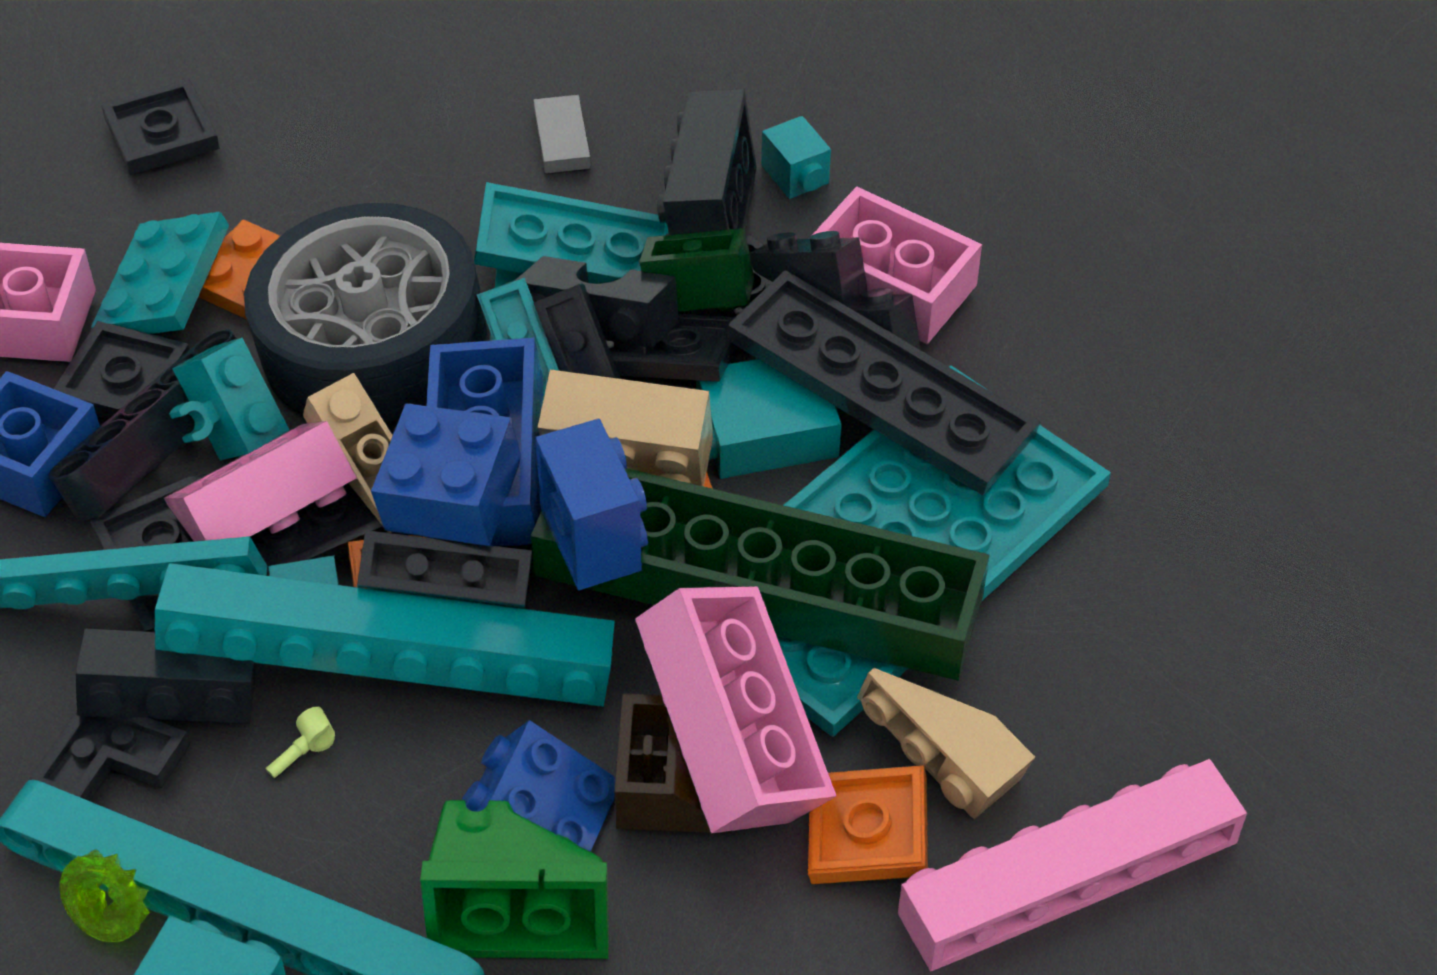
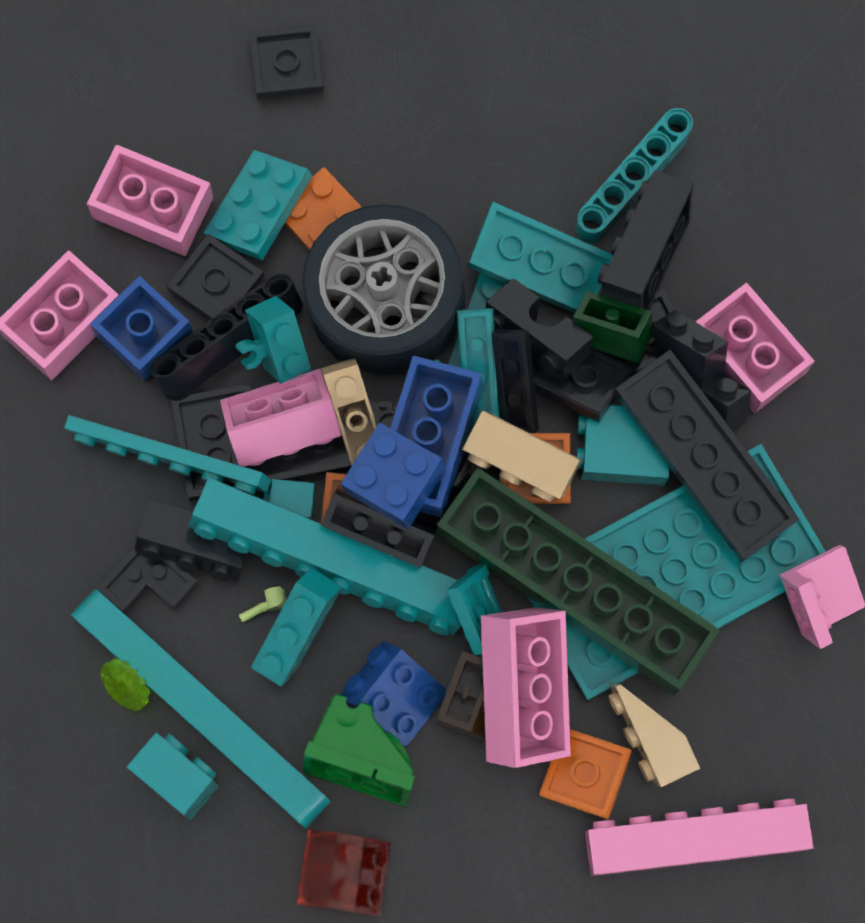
camera: 15 degrees right, 25 degrees up
(357, 732) = (296, 626): none -> teal brick
(561, 134) = (563, 148): light grey tile -> none
(591, 503) = (475, 531): blue brick -> none
(611, 621) = (472, 598): none -> teal plate
(639, 168) = (640, 162): none -> teal beam
(795, 157) = (719, 225): teal brick -> none
(1111, 506) = (822, 593): none -> bright pink bracket

